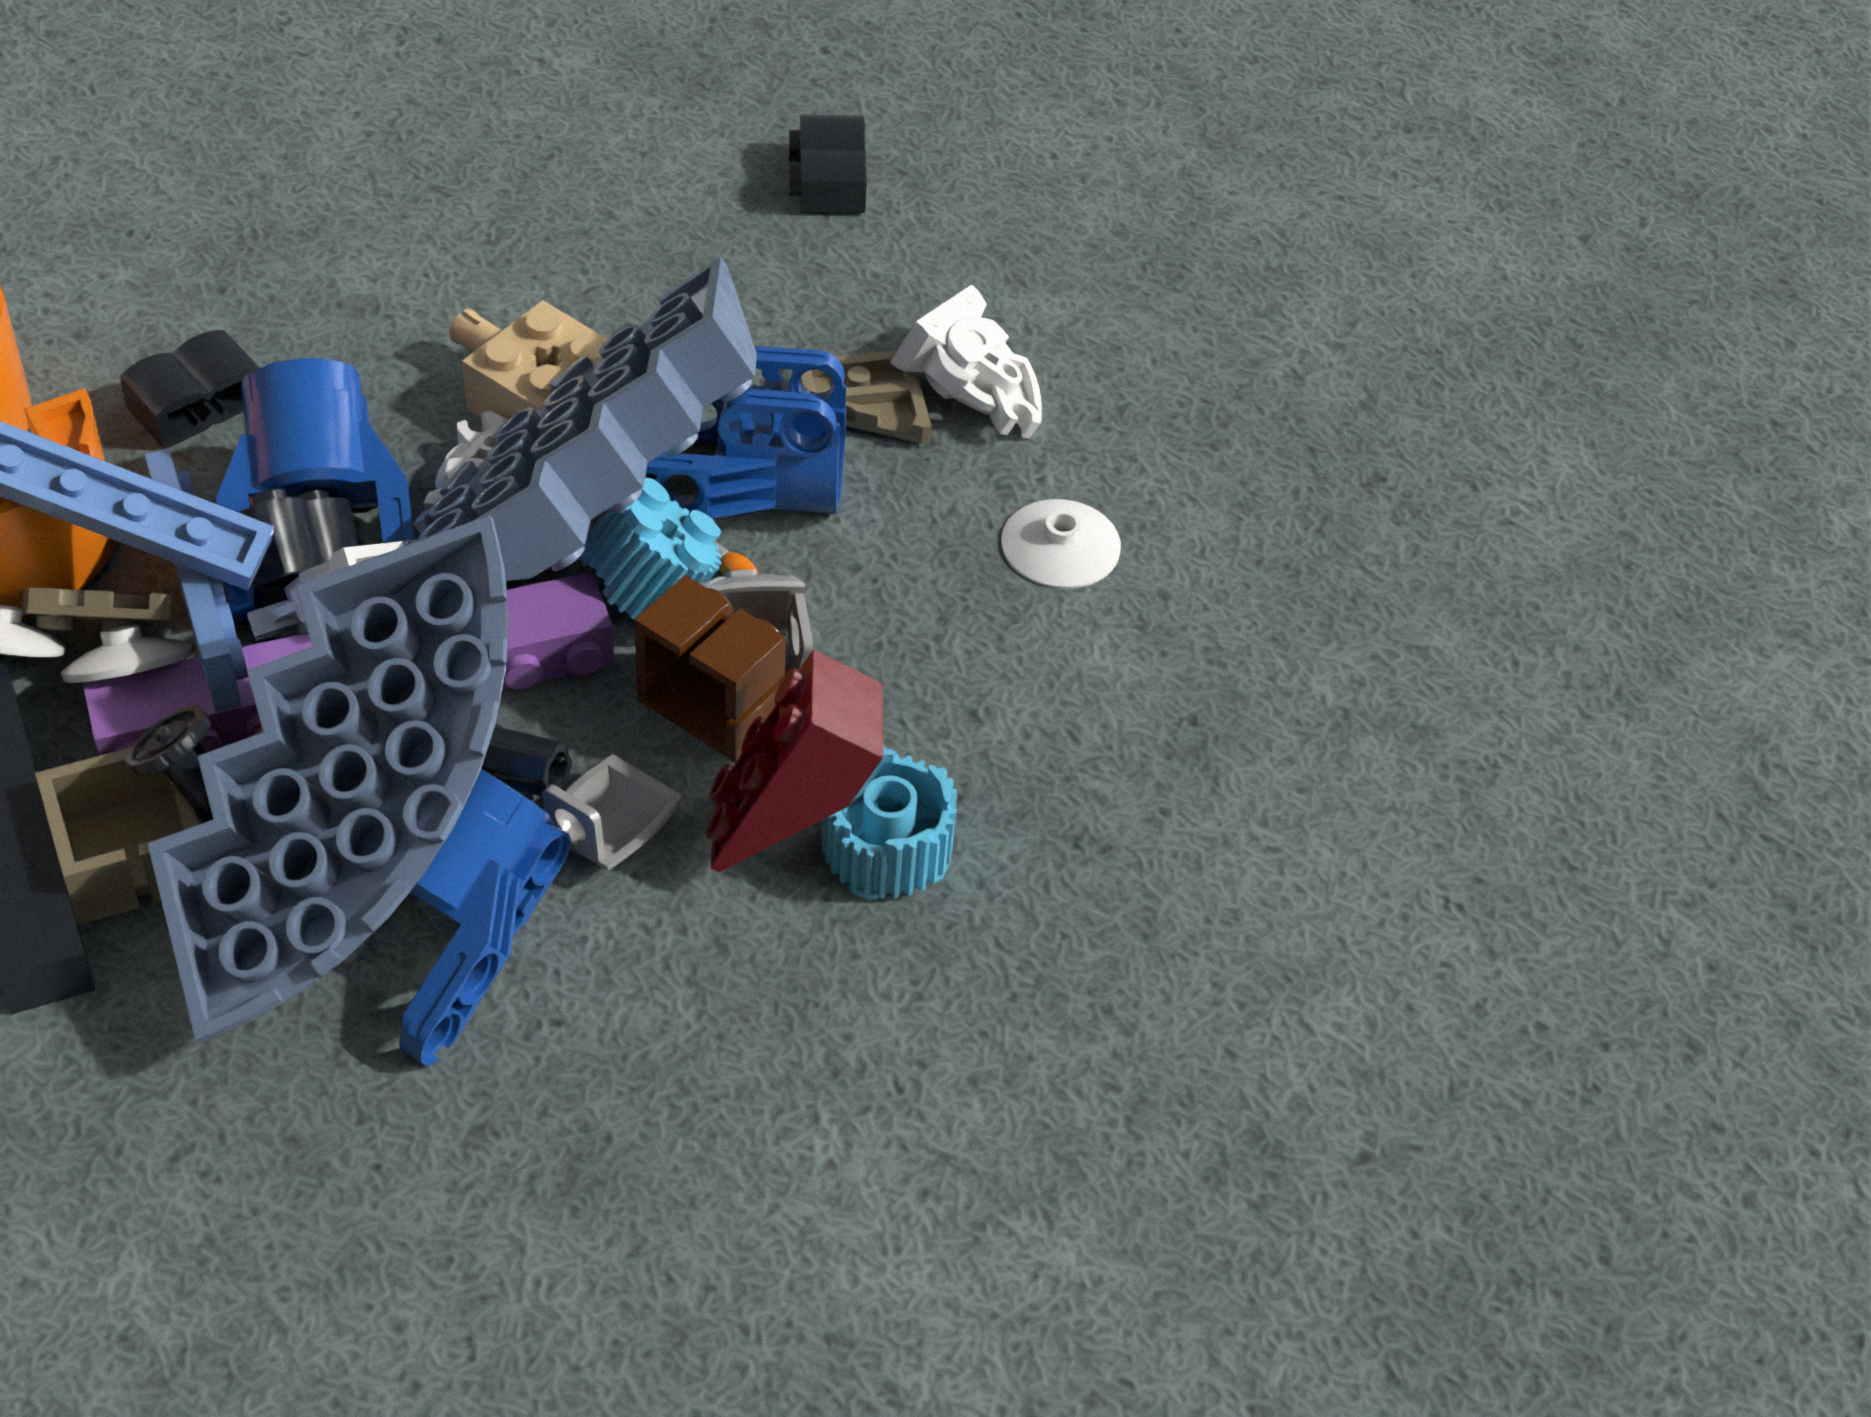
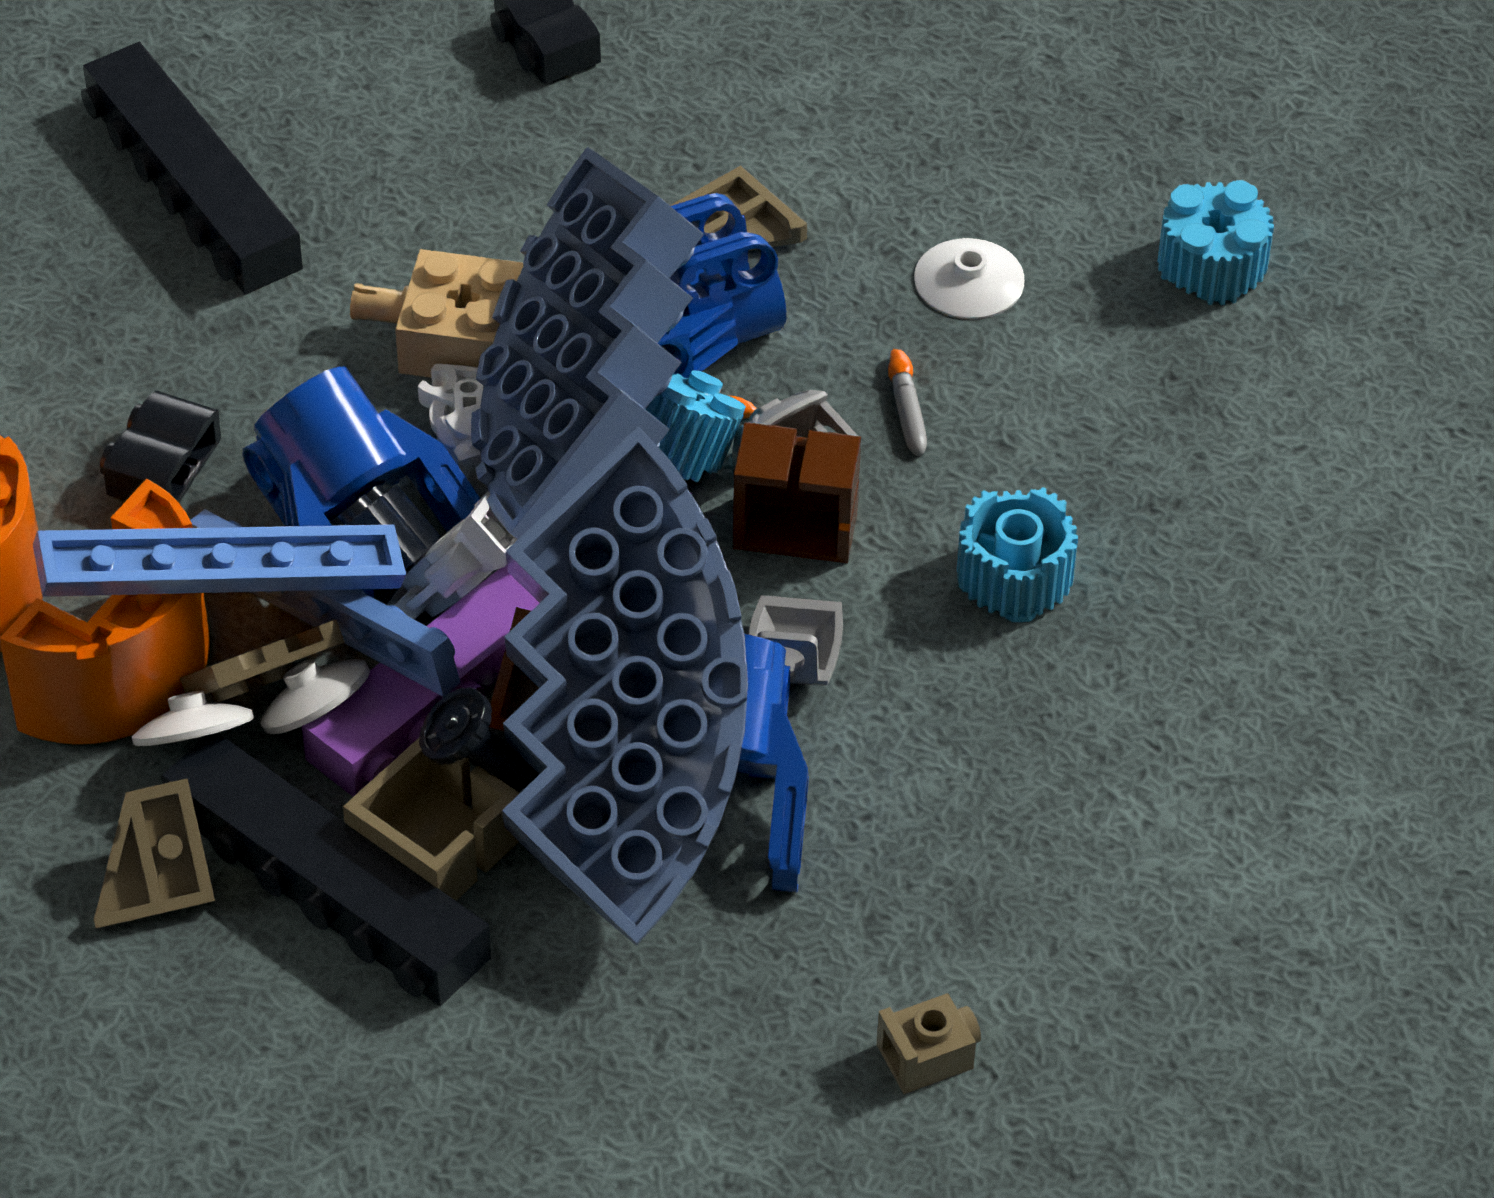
camera: 25 degrees left, 0 degrees up
(423, 161) = (191, 168): none -> black brick
(423, 1307) = (928, 1041): none -> dark tan brick
(799, 760) = (933, 533): dark red slope -> none
(922, 604) = (900, 373): none -> light grey piece
(971, 362) = (803, 159): white piece -> none
(1320, 604) = (1215, 240): none -> medium azure brick

